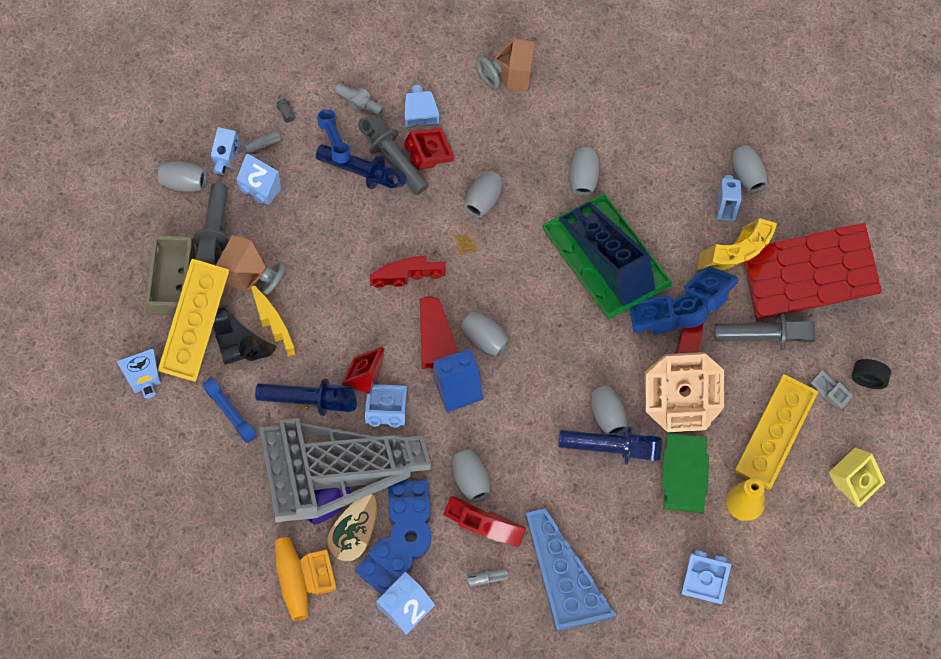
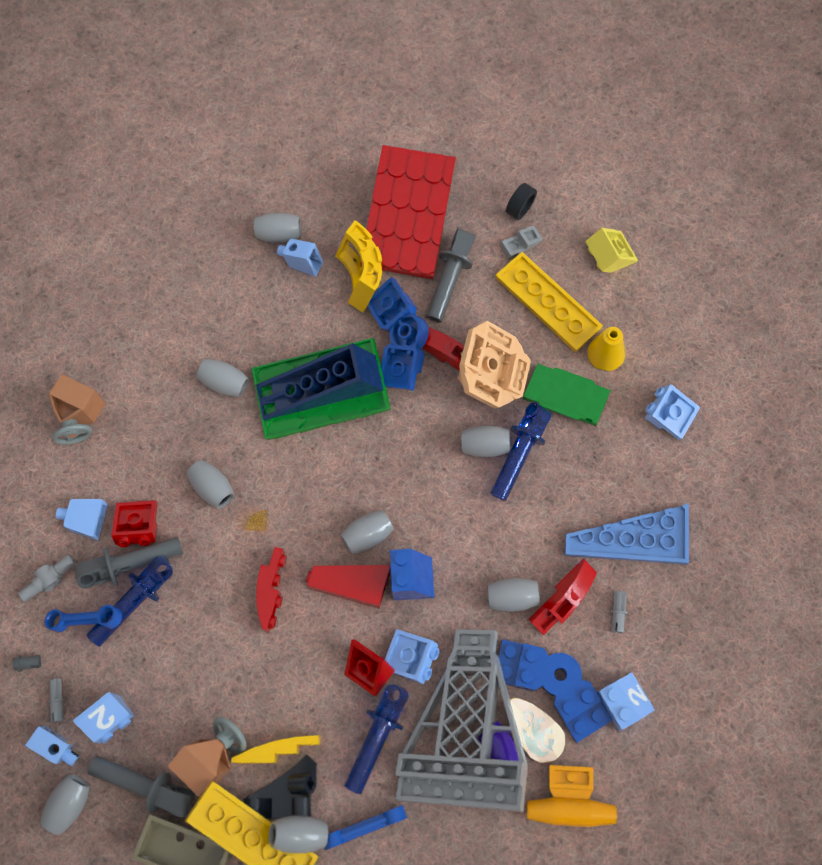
camera: 65 degrees left, 5 degrees up
(207, 354) = (298, 834): none -> light grey piece

